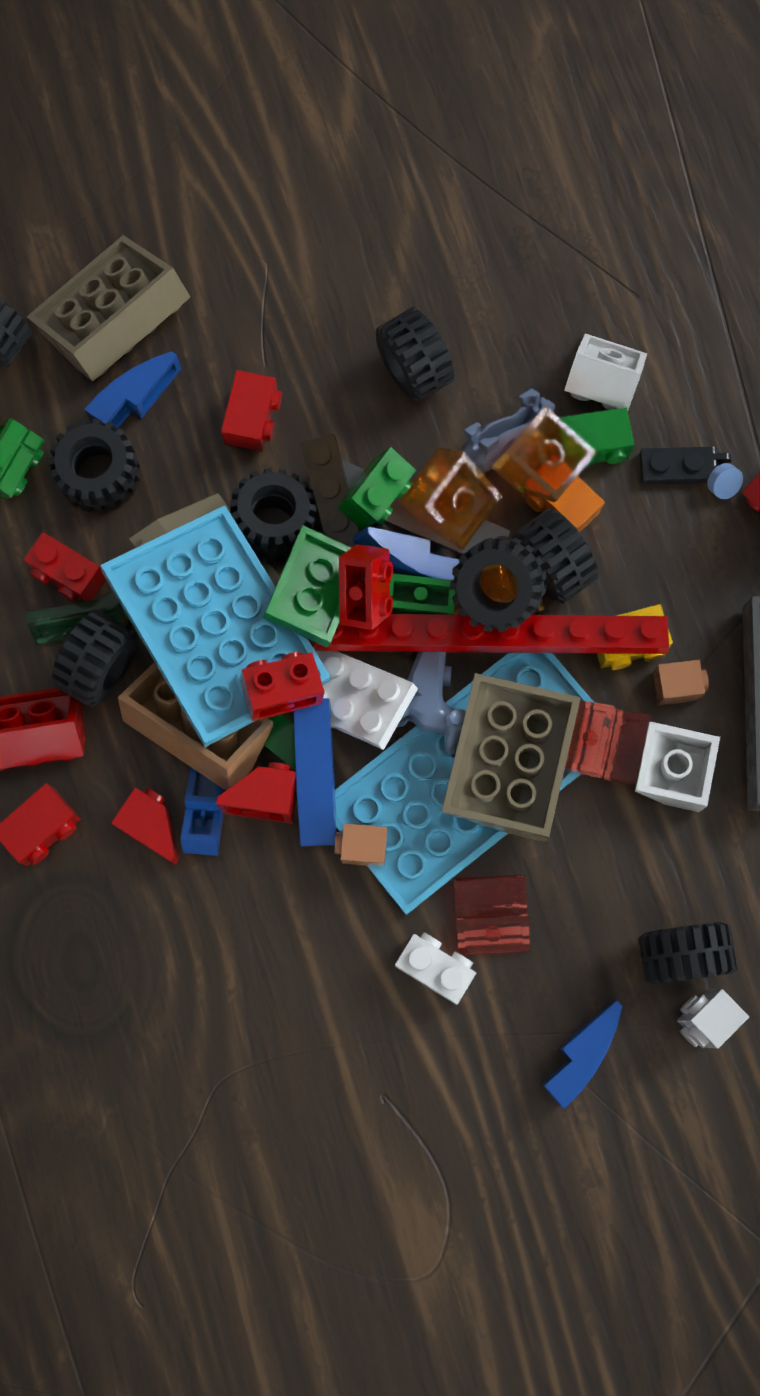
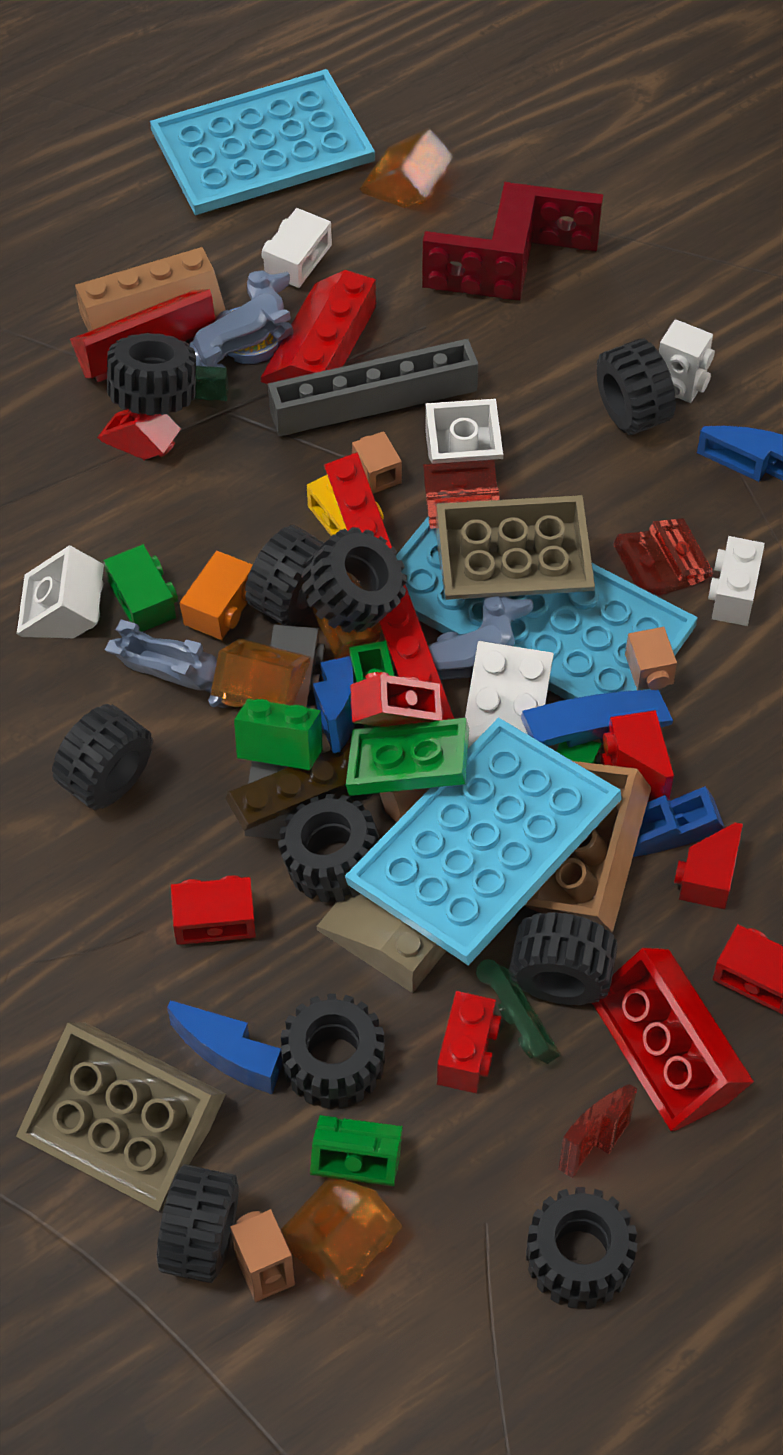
camera: 110 degrees left, 20 degrees down
(281, 685) = (533, 738): red brick -> none
(544, 457) = (191, 600): clear orange slope -> none
(679, 465) = (144, 515): black hinge -> none
(725, 481) = (152, 473): light blue tile -> none

